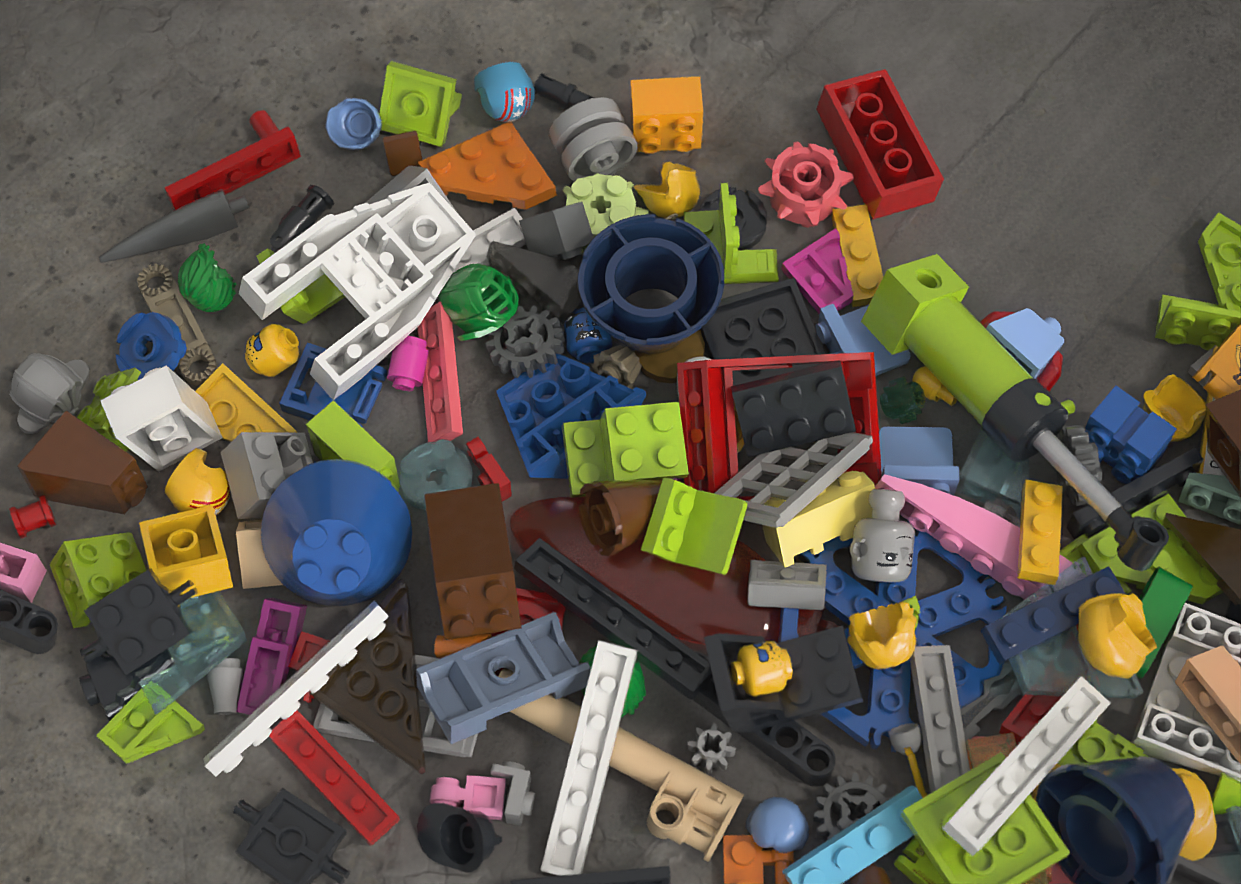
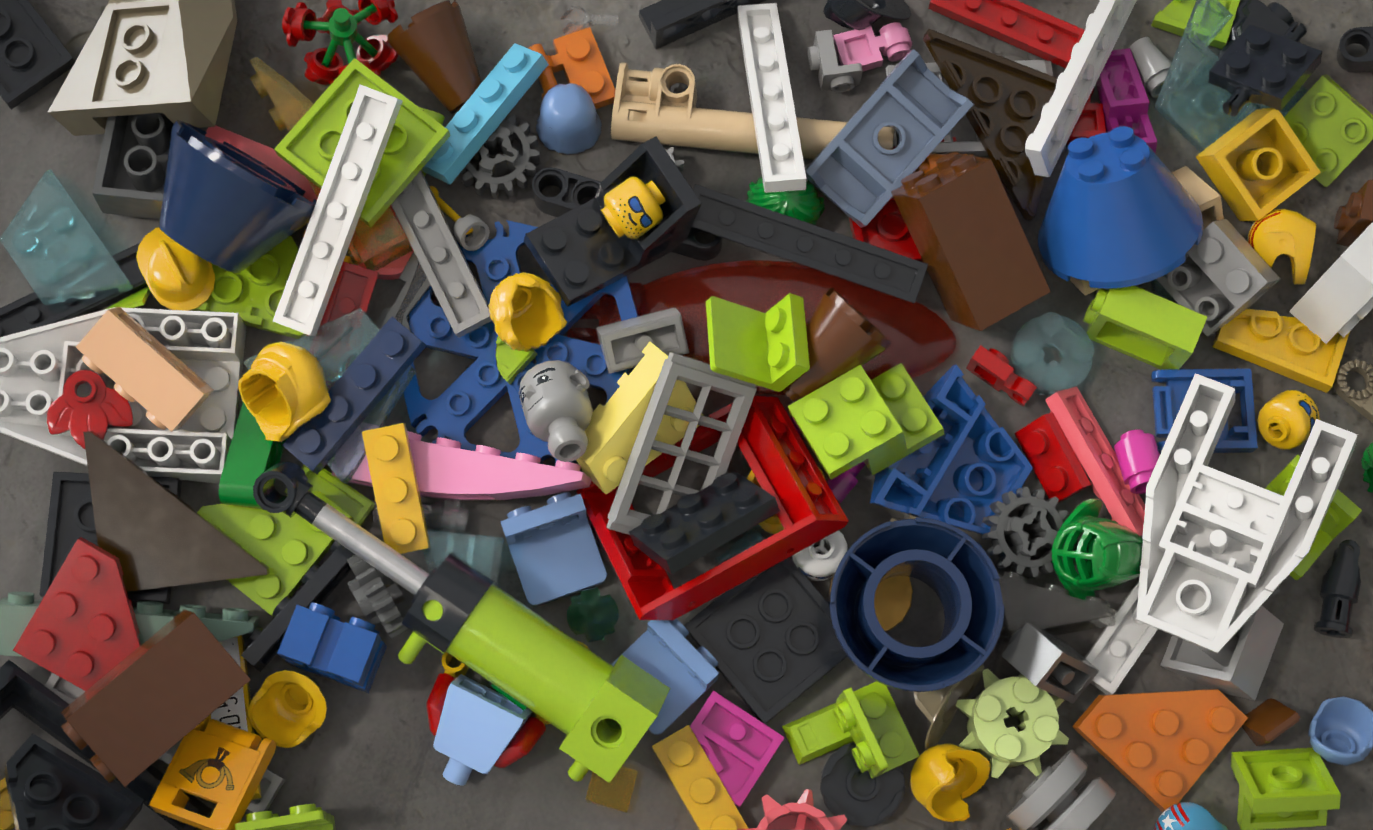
camera: 155 degrees right, 10 degrees up
(477, 391) = (1052, 458): none -> red plate

